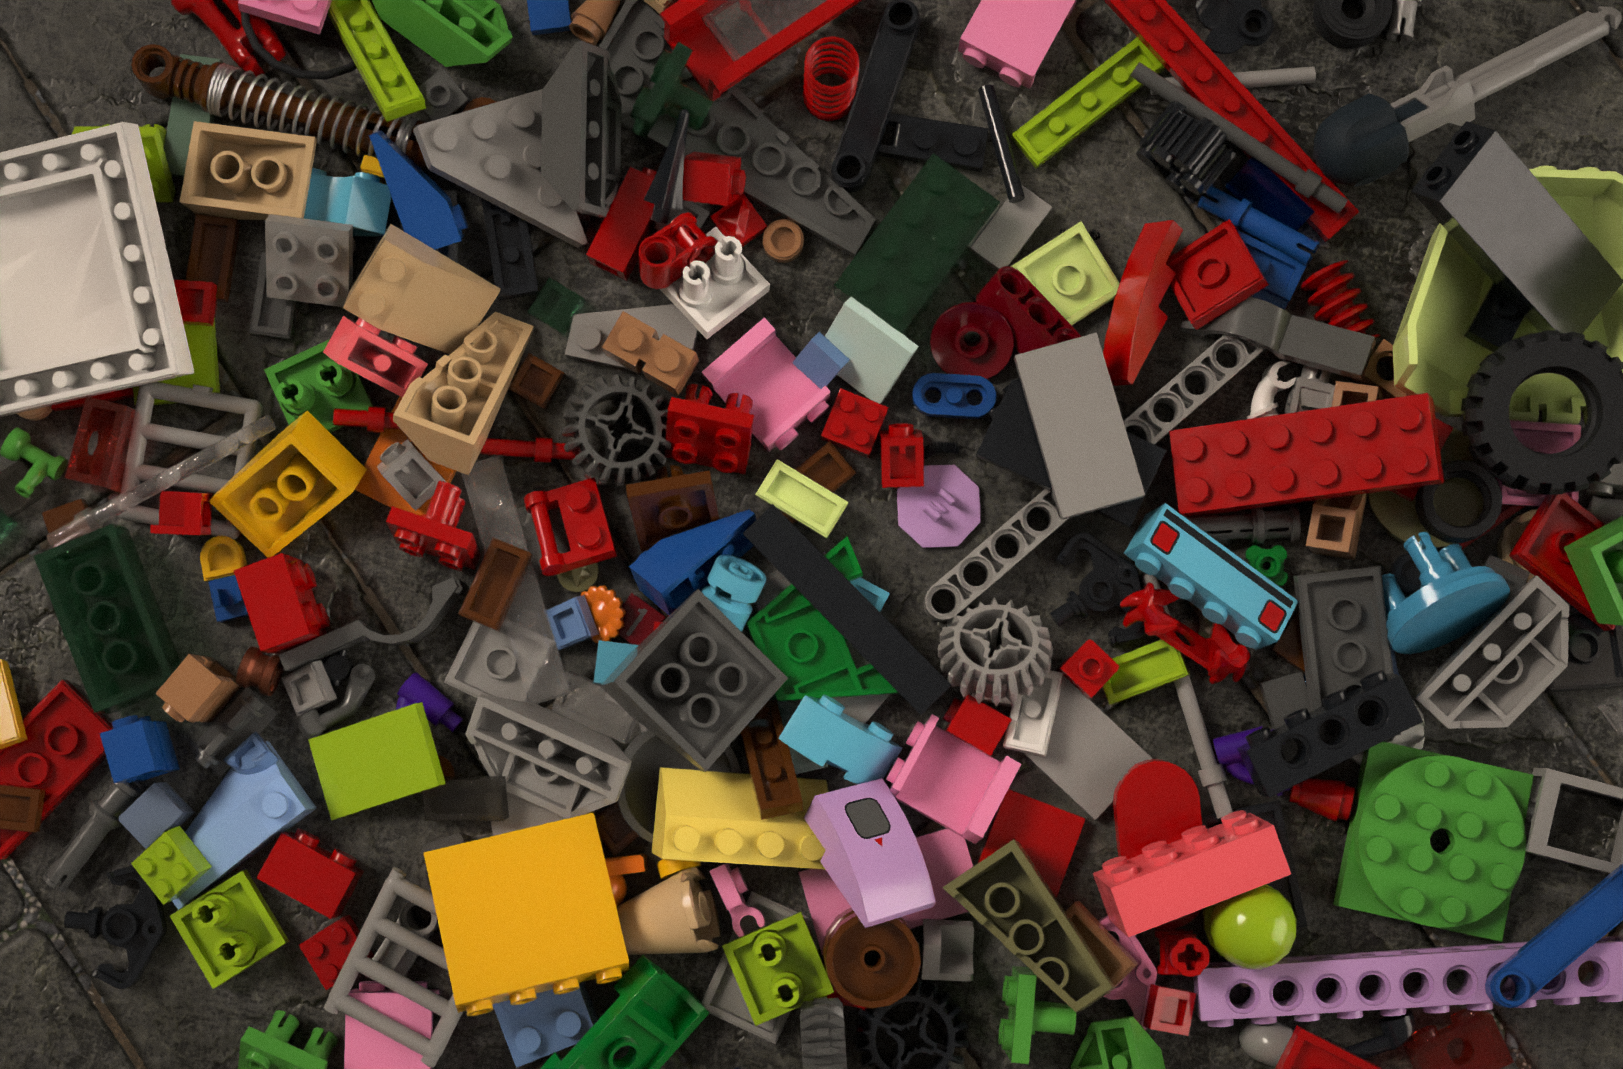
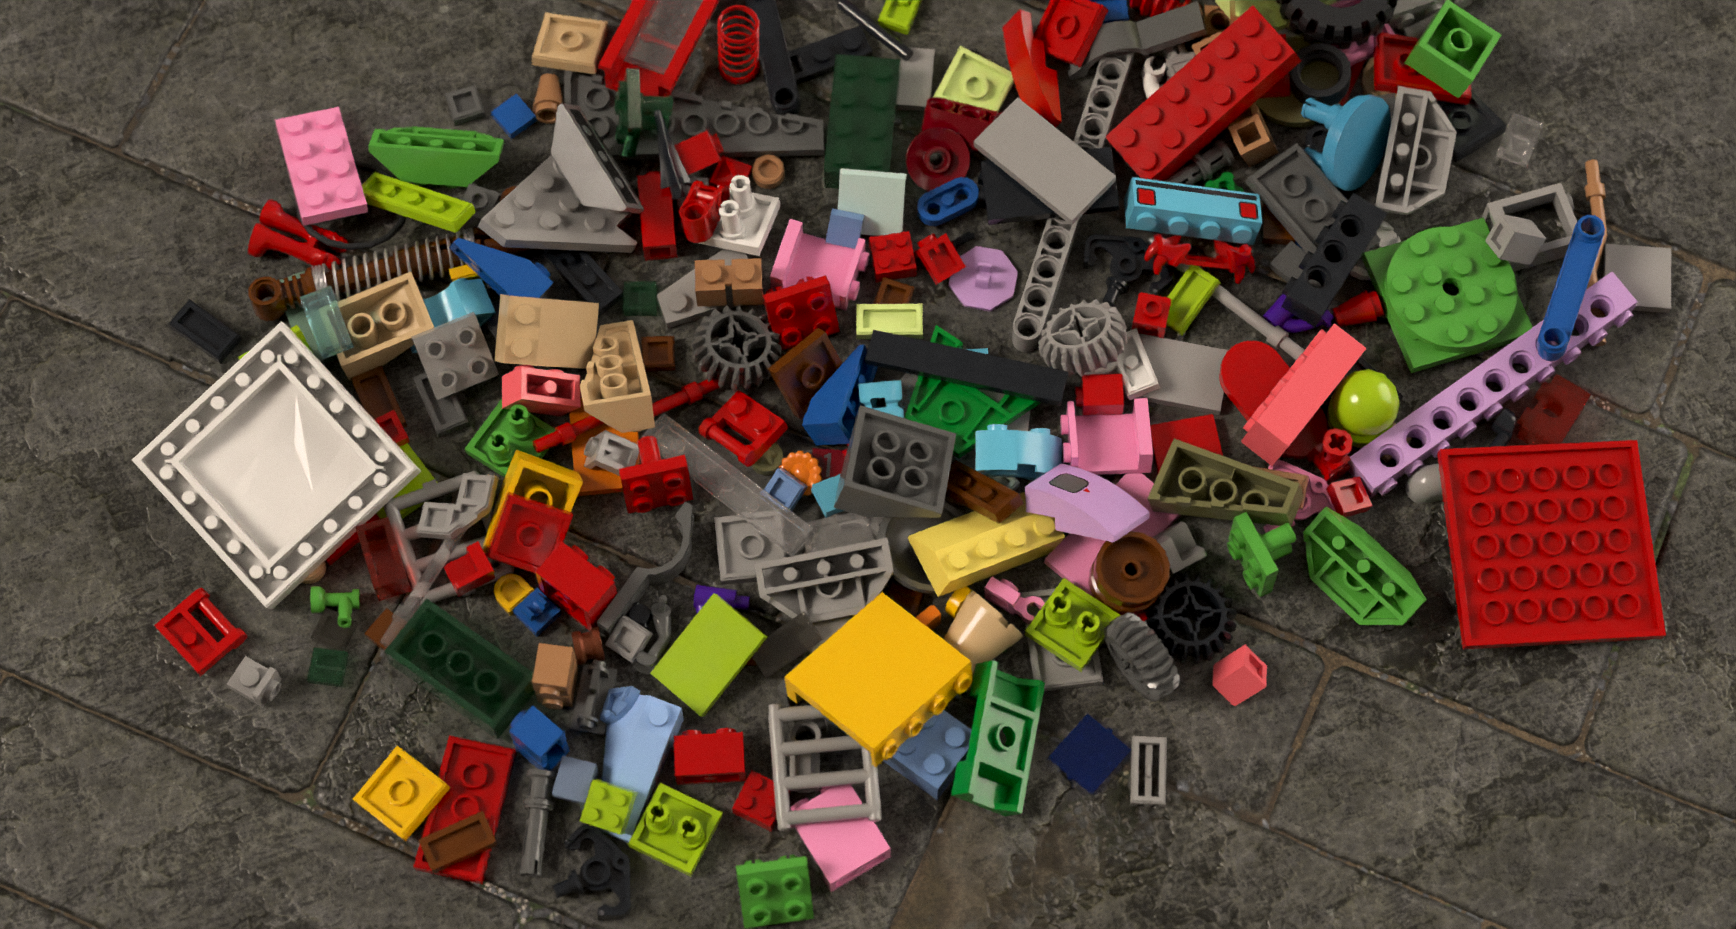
camera: 35 degrees left, 15 degrees down
(80, 66) = (205, 331): none -> black tile
(190, 142) = (326, 322): none -> clear light blue tile
(223, 445) = (472, 504): none -> light grey tile
(265, 513) = (527, 532): none -> red tile
(495, 584) = (717, 490): reddish brown tile -> none
(1549, 834) = (1515, 239): none -> light grey panel

